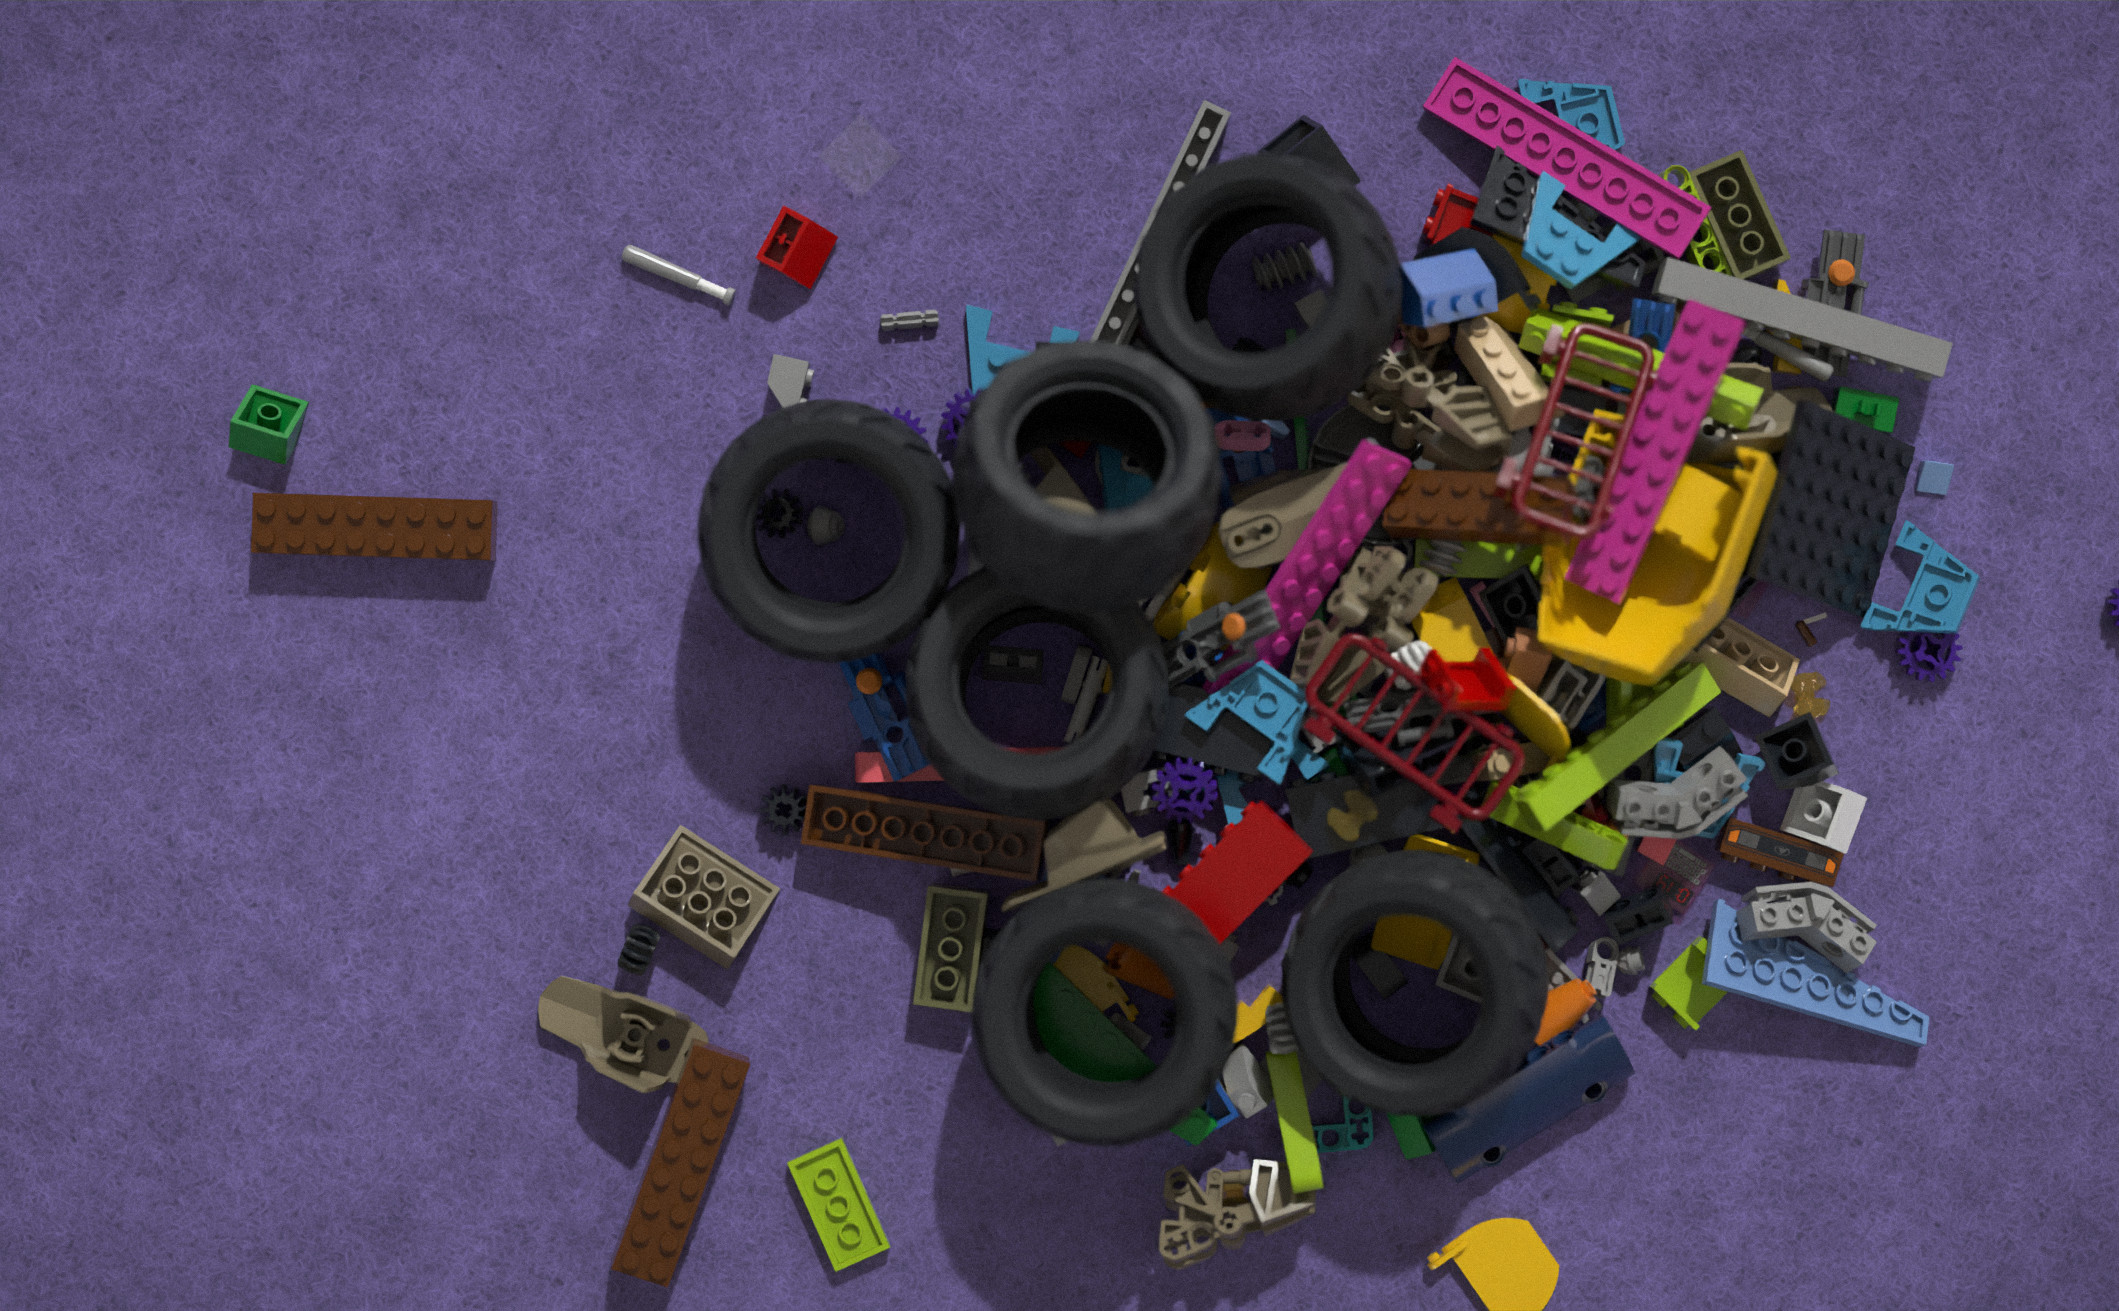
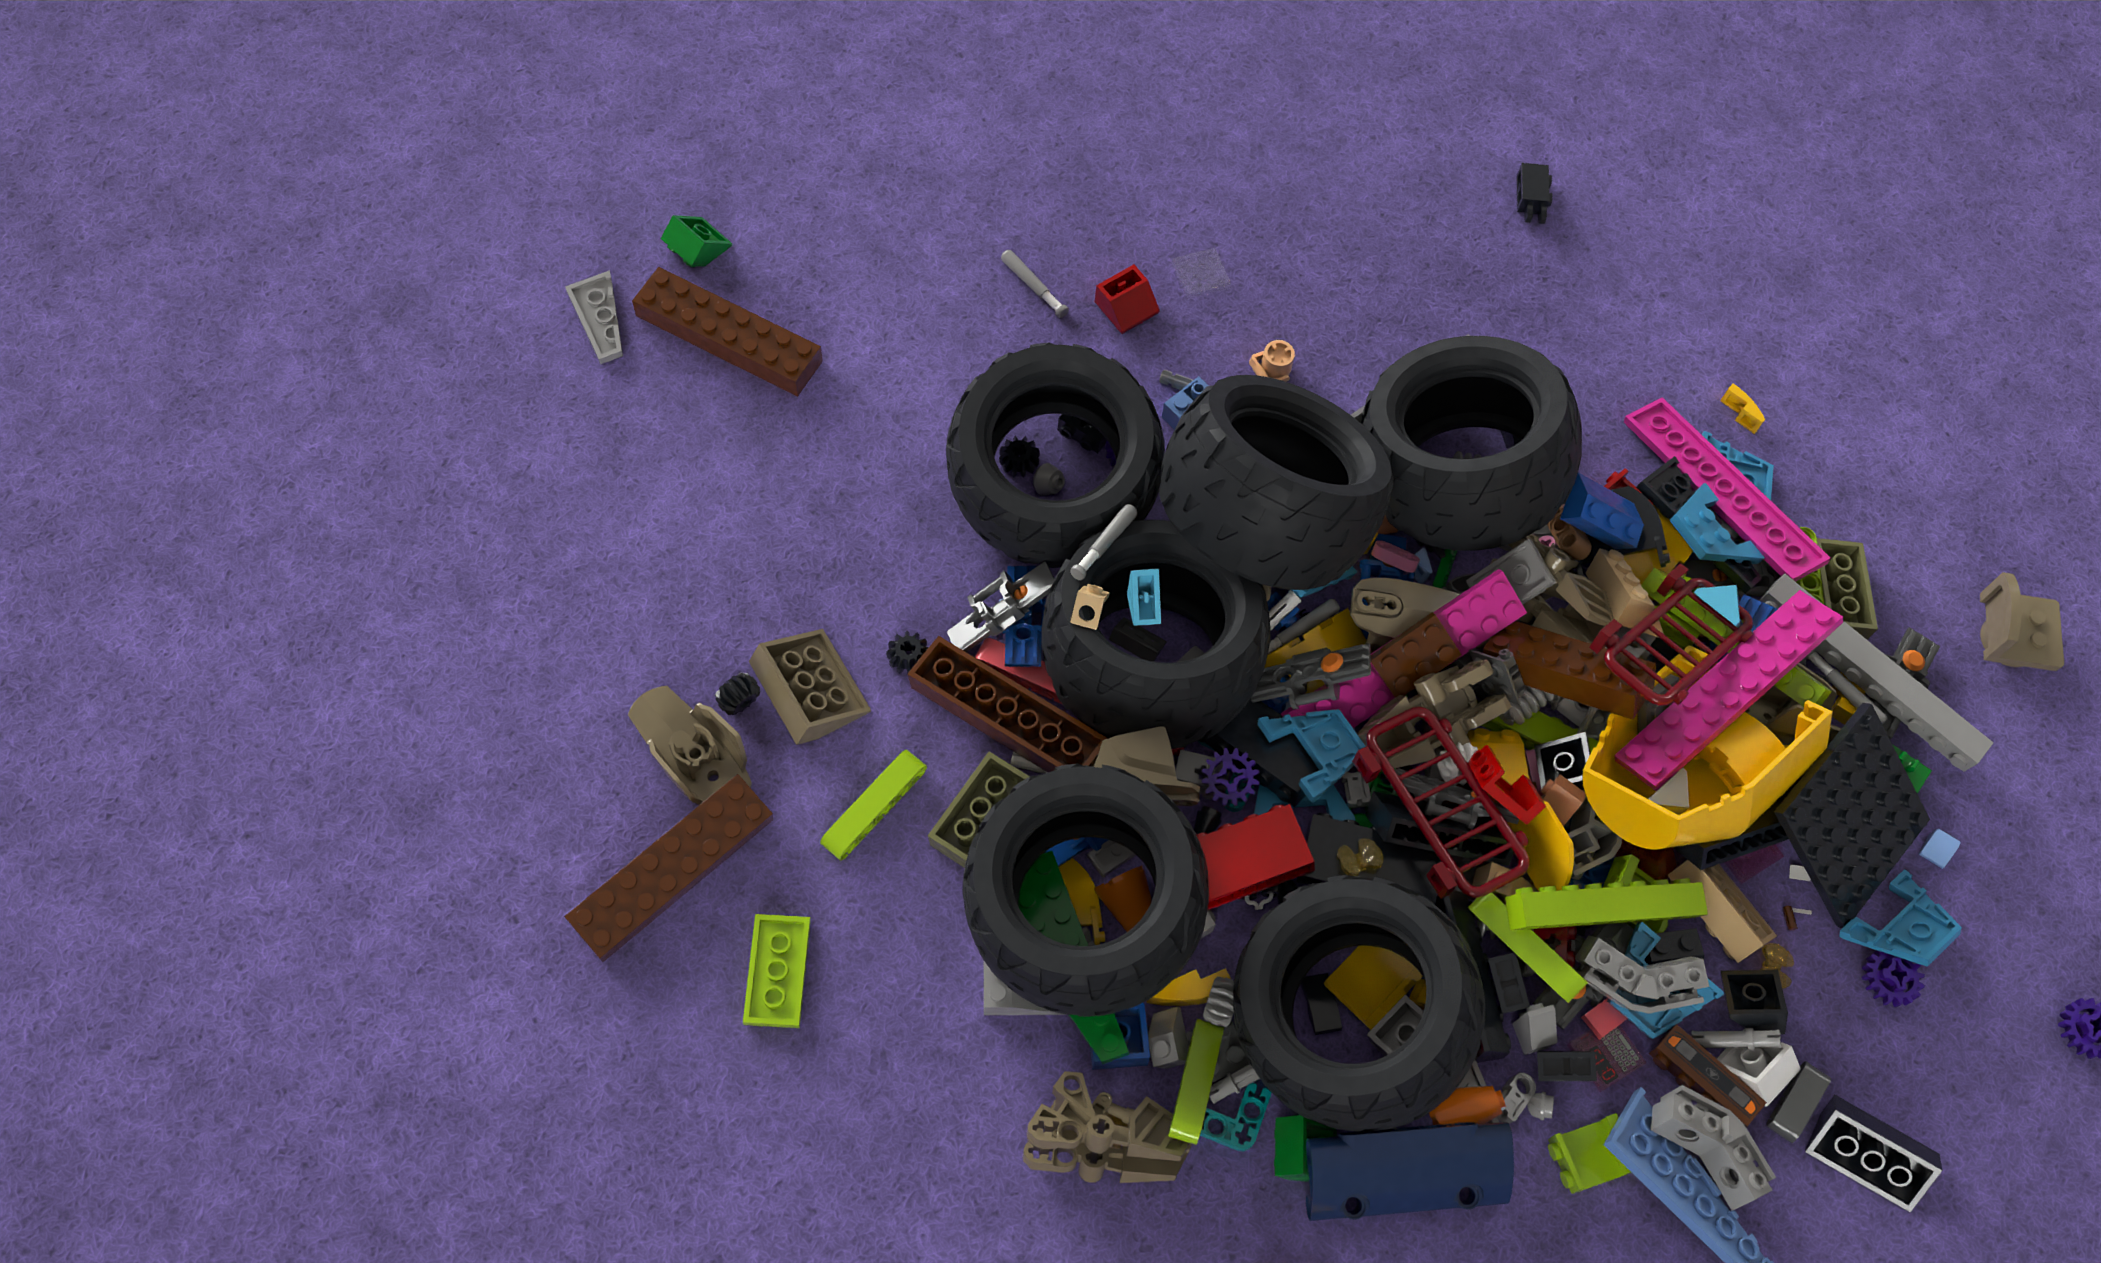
camera: 30 degrees right, 25 degrees down
(216, 577) = (597, 312): none -> light grey wing
(839, 990) = (873, 804): none -> lime beam
(869, 708) = (1017, 599): none -> dark grey piece
(930, 351) = (1178, 404): none -> medium blue slope
(942, 629) = (1109, 535): none -> light grey piece
(963, 724) = (1091, 596): none -> tan bracket
(1002, 241) = (1276, 360): none -> light nougat piece
(1018, 696) = (1144, 597): none -> medium azure slope
(1315, 572) = (1413, 654): none -> reddish brown plate
(1321, 1098) = (1233, 1083): none -> light grey axle
(1381, 417) = (1523, 569): none -> light grey tile
(1415, 544) = (1505, 678): none -> dark grey hinge
(1559, 26) = (1748, 411): none -> yellow slope
(1612, 351) = (1723, 600): none -> medium azure slope
(1637, 601) = (1673, 793): none -> light grey slope
(1792, 802) = (1738, 1039): none -> light grey pin
(1876, 830) = (1798, 1102): none -> dark grey beam
(1948, 169) = (2020, 627): none -> dark tan piece
(1963, 845) = (1873, 1153): none -> black slope

